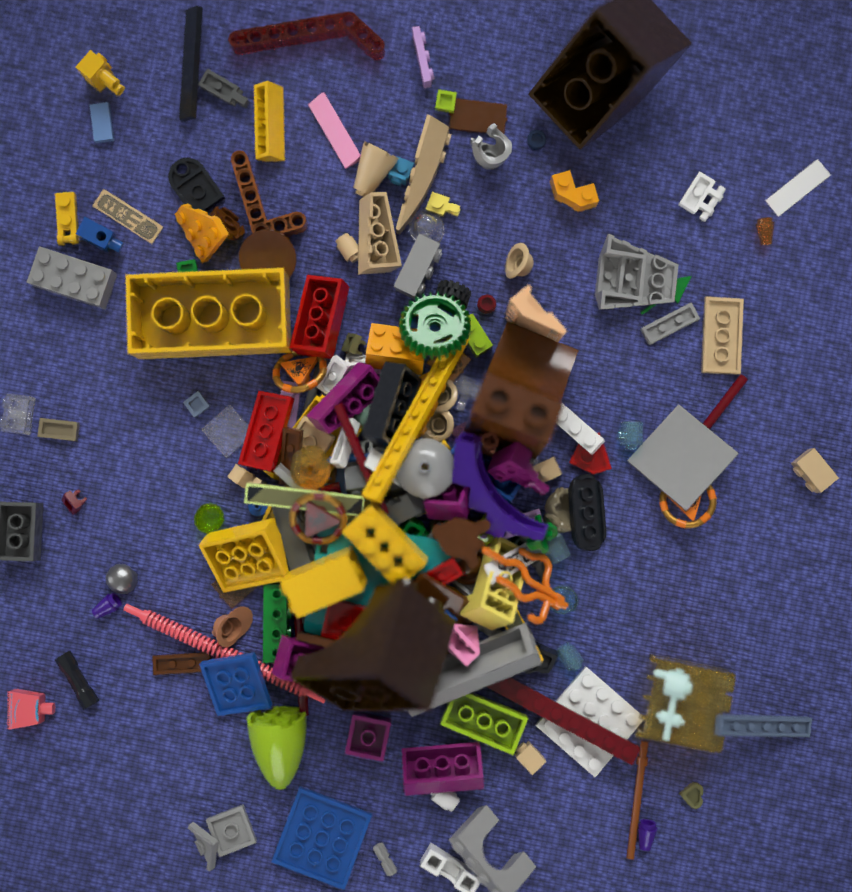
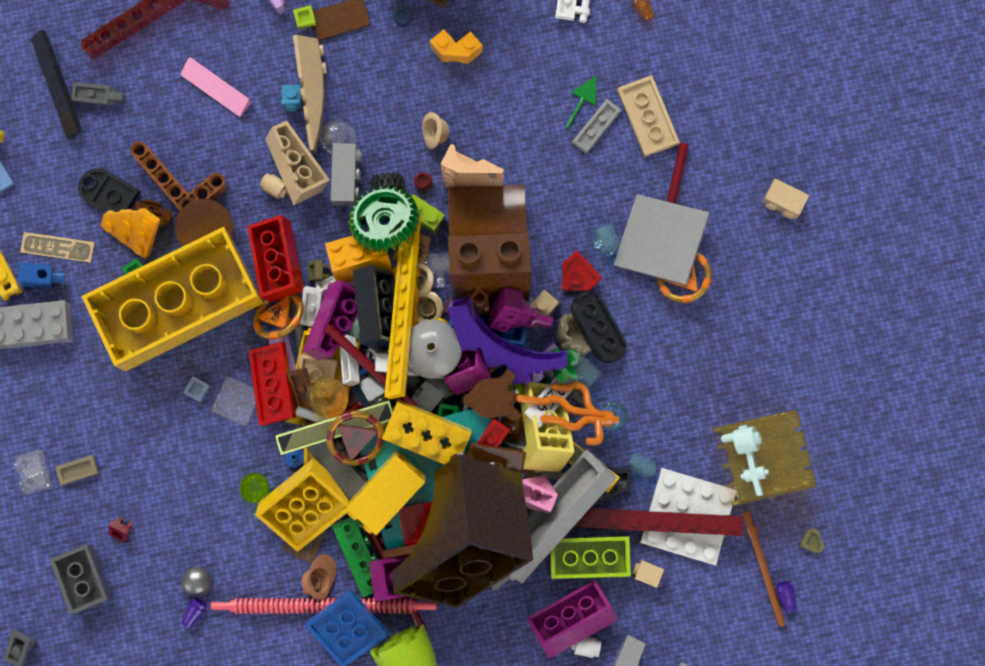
camera: 25 degrees left, 5 degrees down
(178, 663) = (284, 636): reddish brown tile -> none
(242, 476) = (267, 436): tan leg -> none
(269, 122) = (151, 105): yellow brick -> none
(368, 736) = (490, 621): magenta brick -> none
(372, 168) = (264, 105): tan cone -> none
(440, 204) = (340, 111): light yellow plate -> none
(489, 155) = (365, 48): light grey piece -> none
(579, 430) = (556, 256): white plate -> none
(633, 276) = (543, 98): light grey wedge -> none
(762, 725) = (843, 446): sand blue tile -> none

